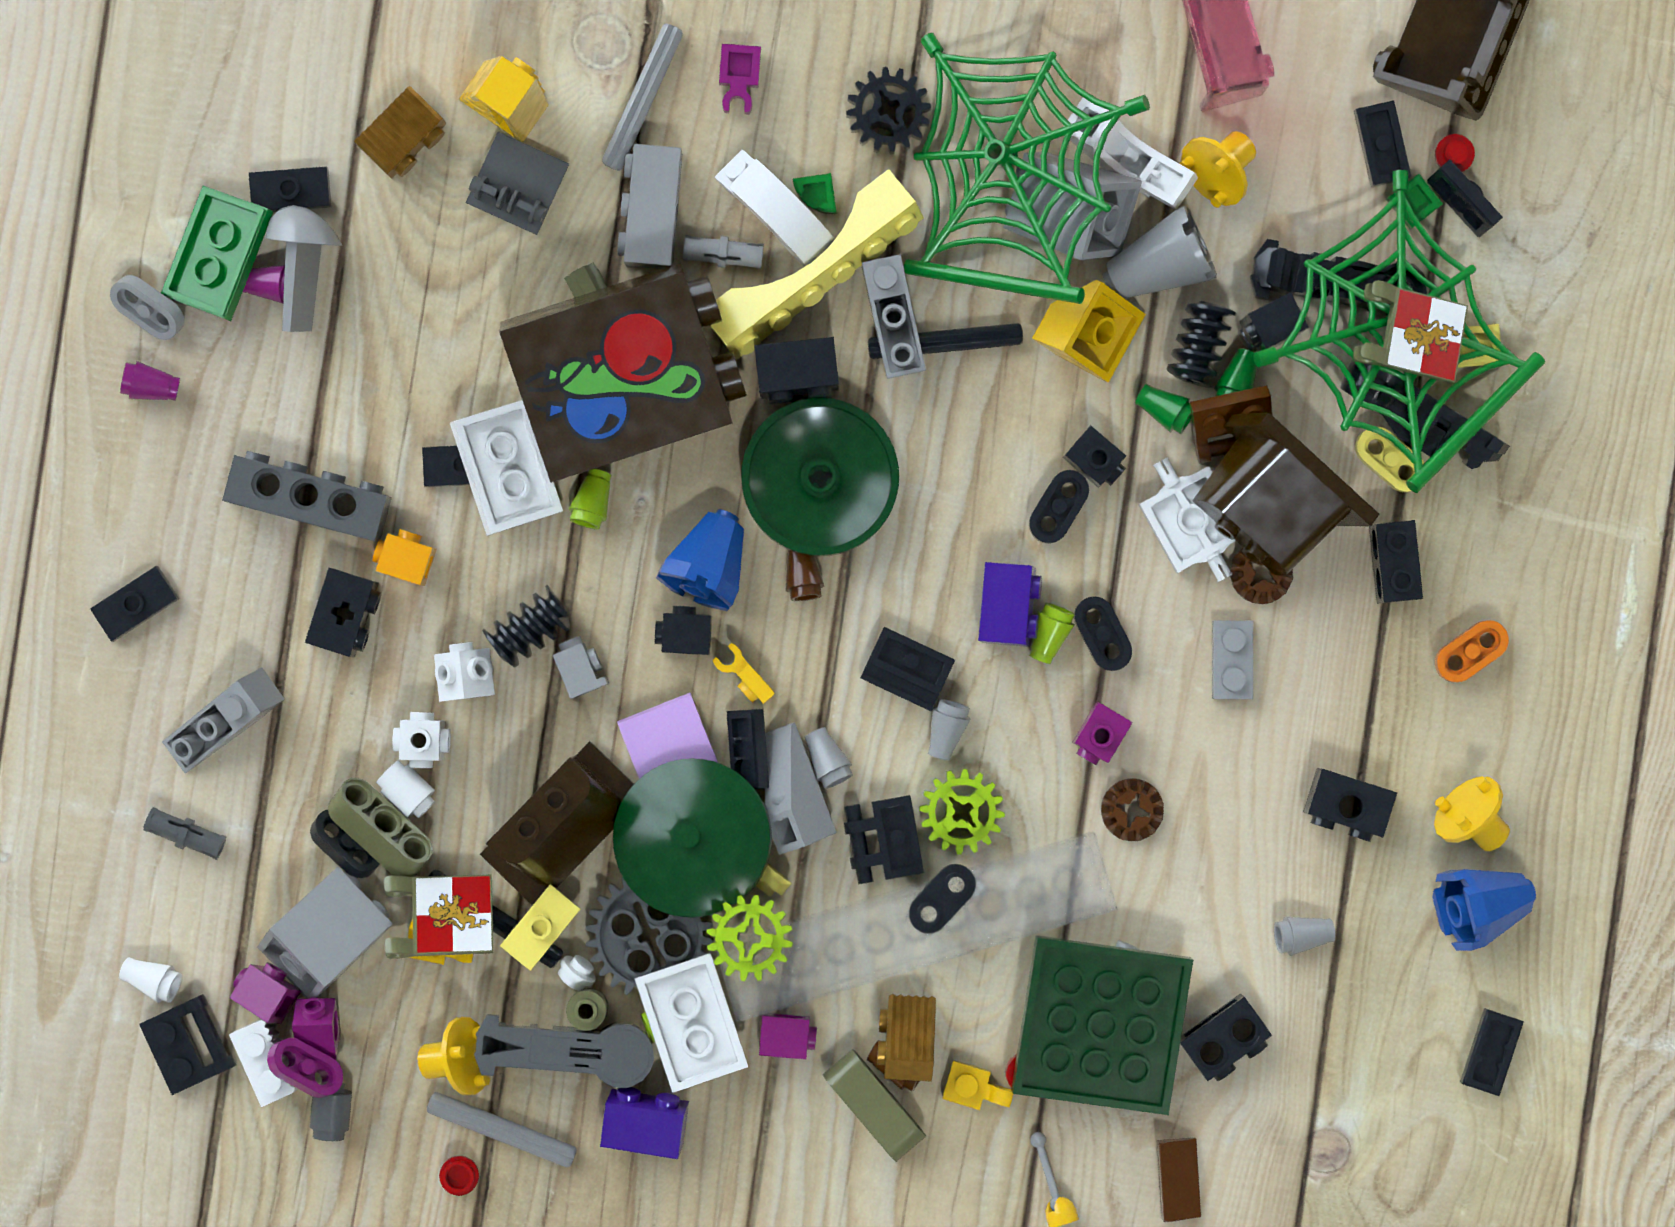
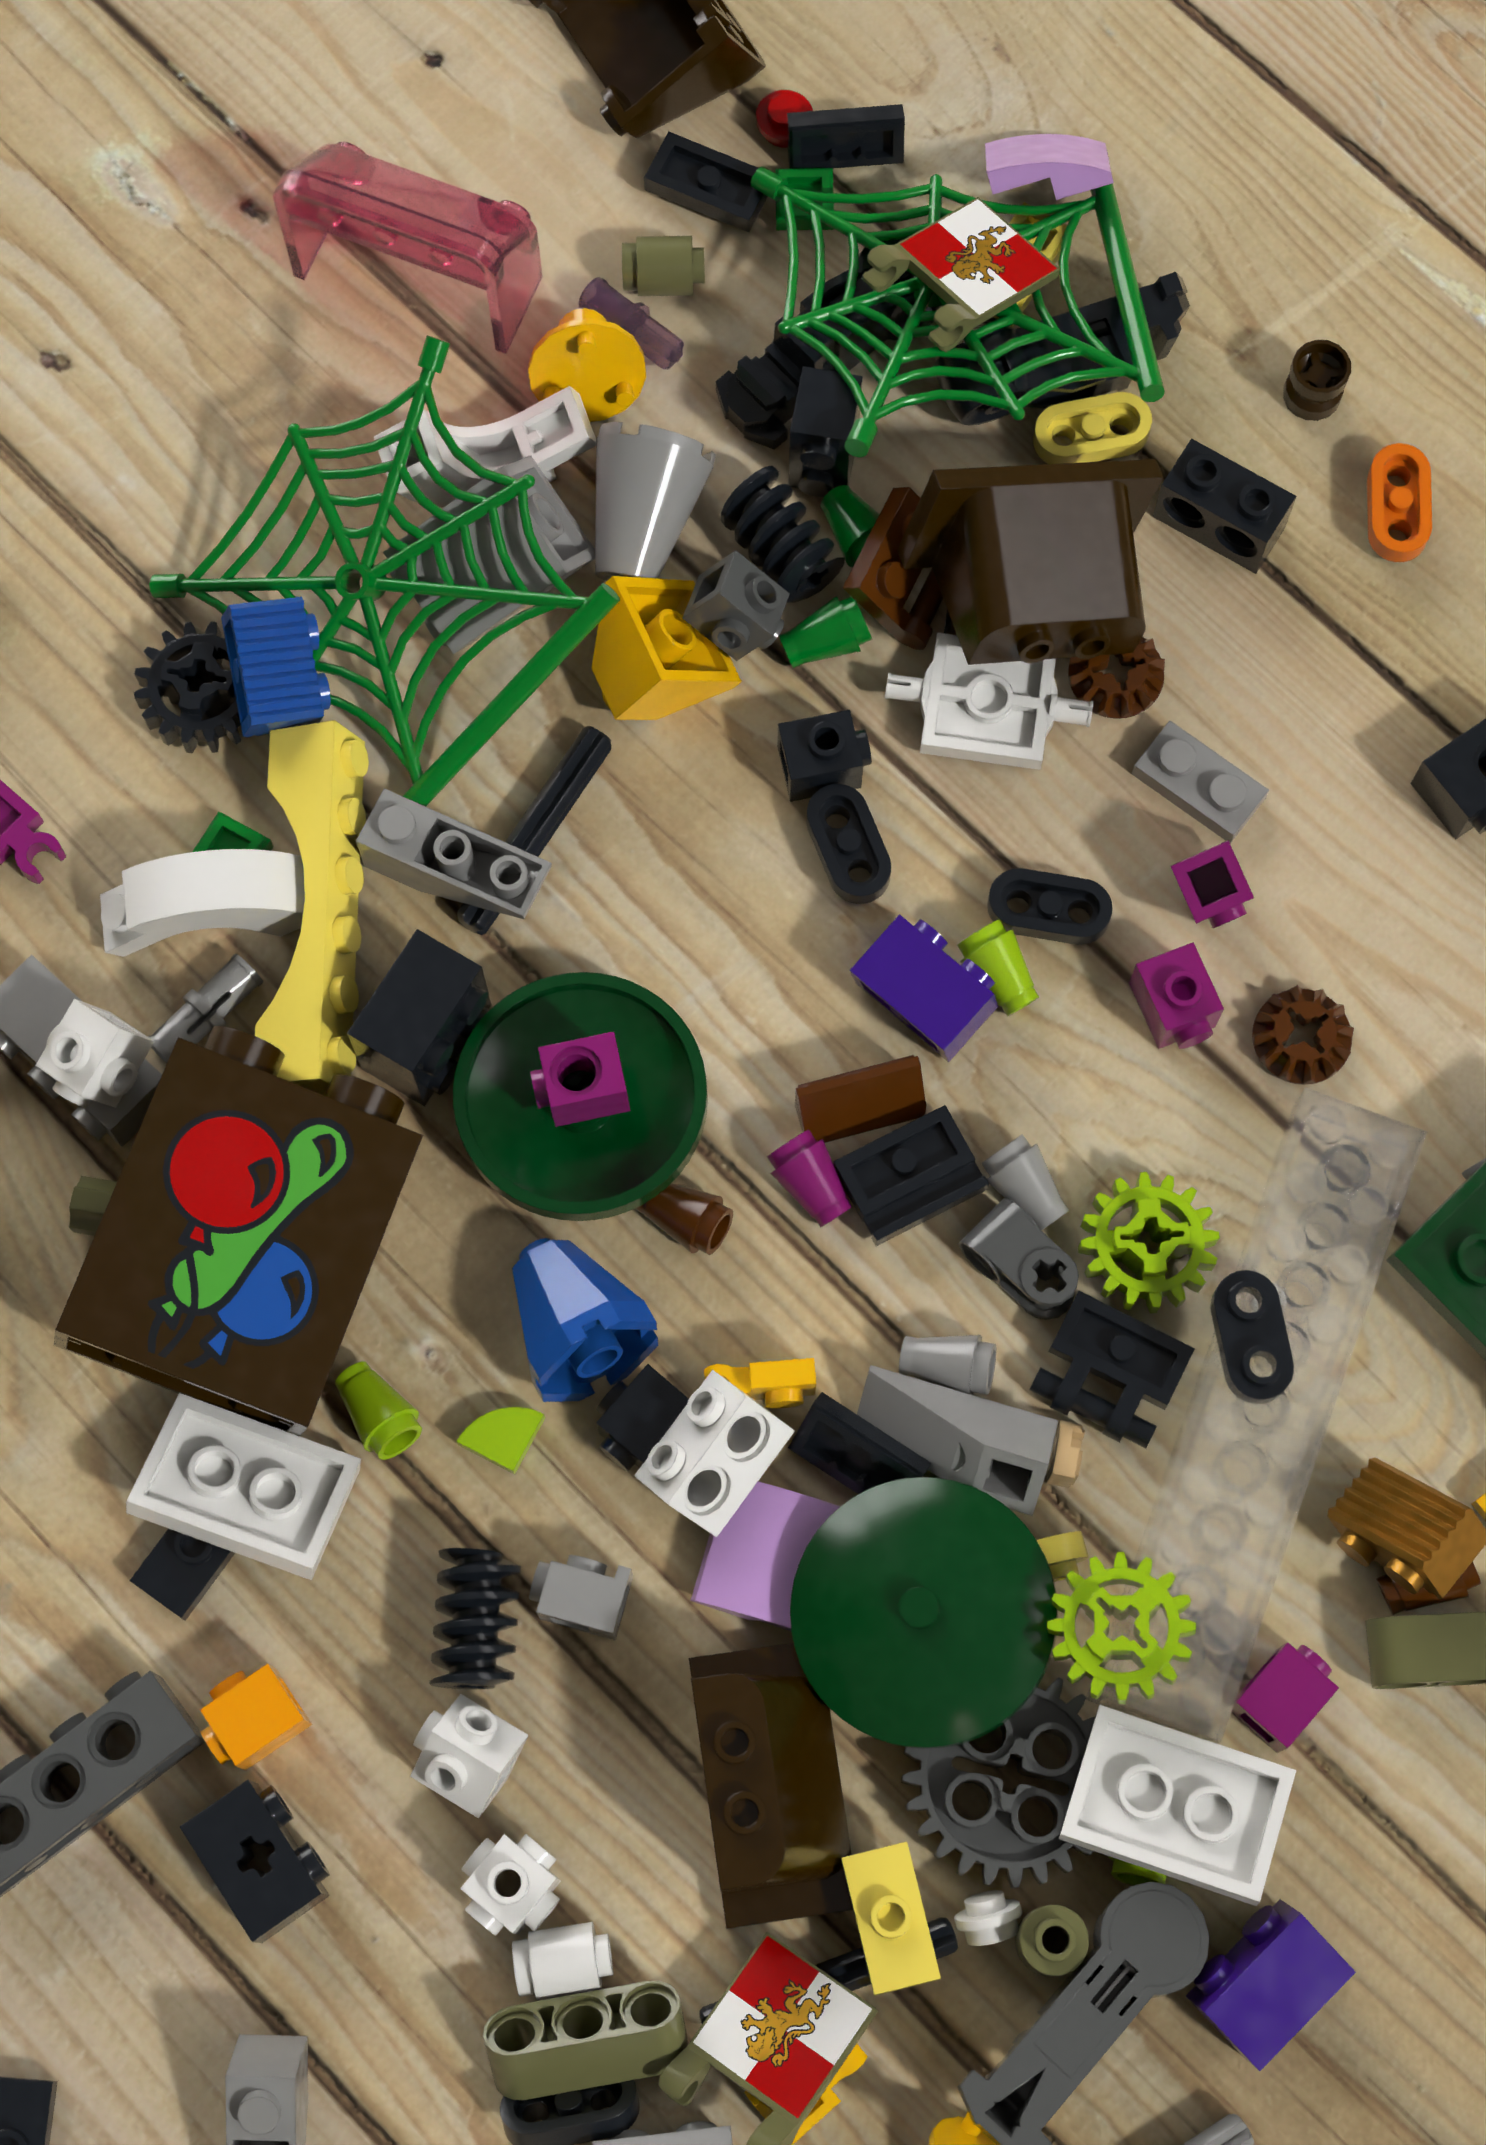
camera: 55 degrees left, 15 degrees down
(627, 569) = (503, 1435): none -> lime tile
(650, 228) = (93, 1055): none -> white brick
(691, 681) = (714, 1453): none -> white brick
(827, 493) = (591, 1054): none -> magenta brick
(827, 847) = (1066, 1454): none -> tan tile
(868, 620) = (810, 1177): none -> magenta cone
(906, 748) = (1014, 1253): none -> dark grey piece
(922, 146) = (274, 665): none -> blue brick
(926, 616) = (862, 1099): none -> reddish brown slope
(1140, 353) = (737, 606): none -> dark grey brick
(1174, 708) = (1213, 885): none -> magenta brick
(1266, 168) = (654, 339): none -> axle
(1311, 159) = (662, 266): none -> olive brick
(1517, 557) = (1326, 370): none -> dark brown wheel
(1529, 320) = (1068, 160): none -> lavender slope

